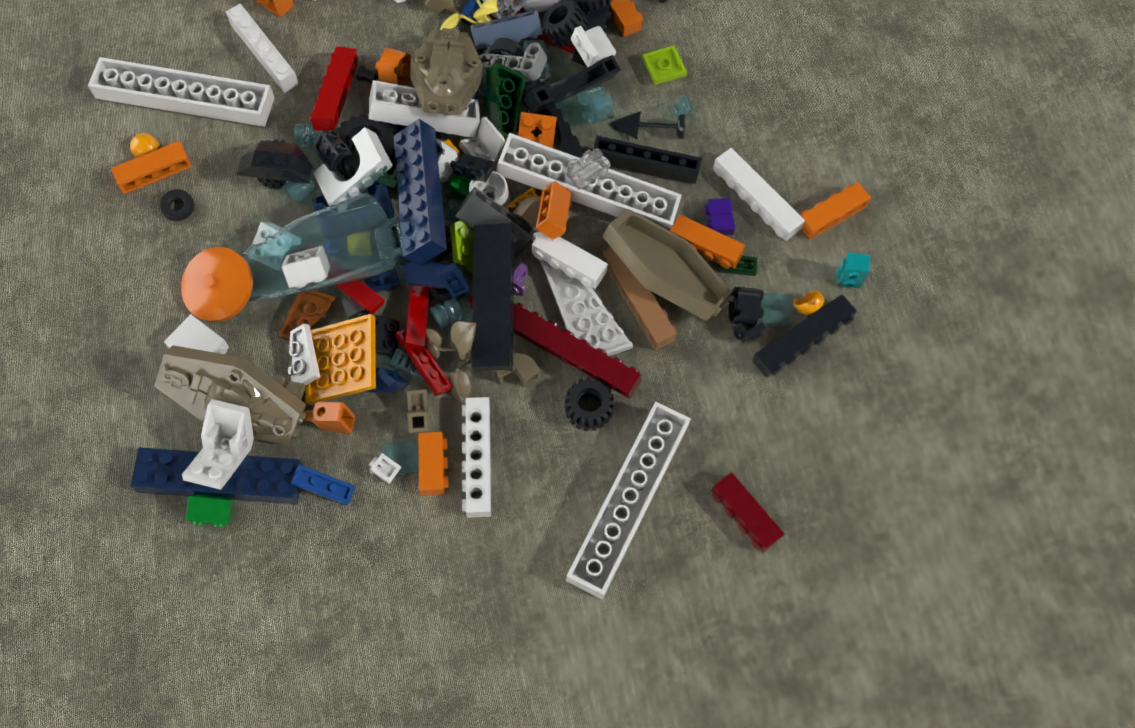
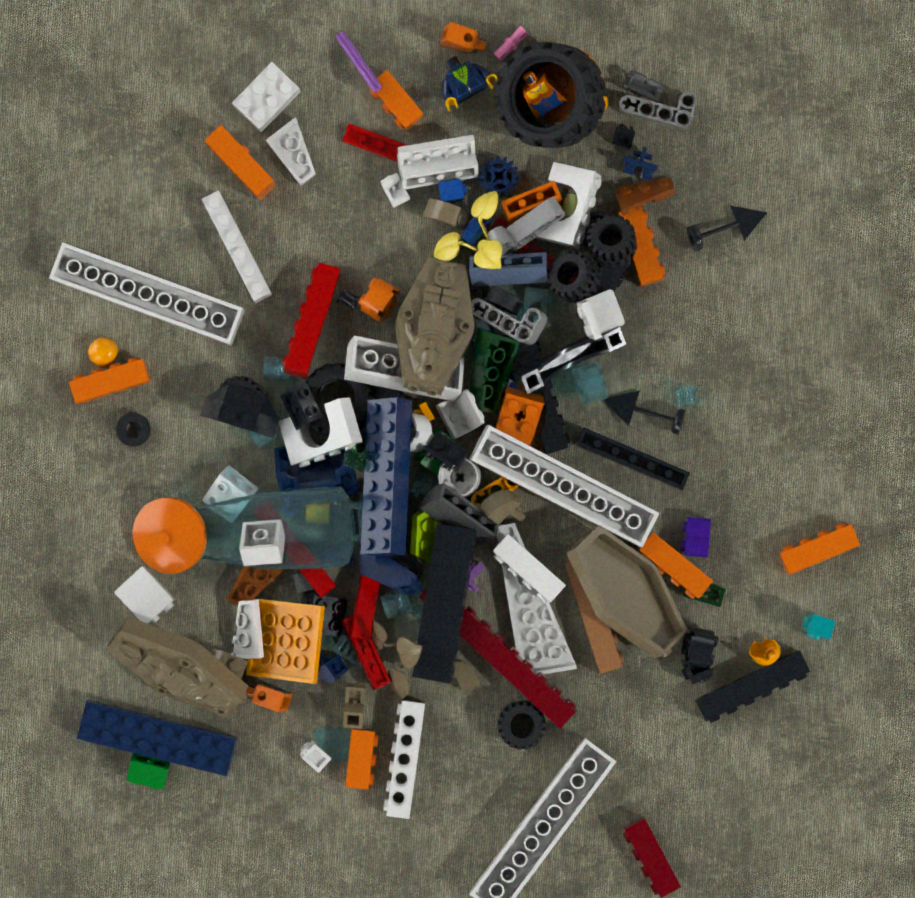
camera: 15 degrees right, 20 degrees up
(225, 441) = (166, 722): white bracket -> none
(322, 484) = (255, 765): blue tile -> none
(553, 210) = (520, 520): orange brick -> none
(587, 168) = (564, 479): clear brick -> none
(664, 65) = (677, 336): lime plate -> none
(758, 194) = (743, 517): white brick -> none
(777, 309) = (731, 648): clear light blue piece -> none

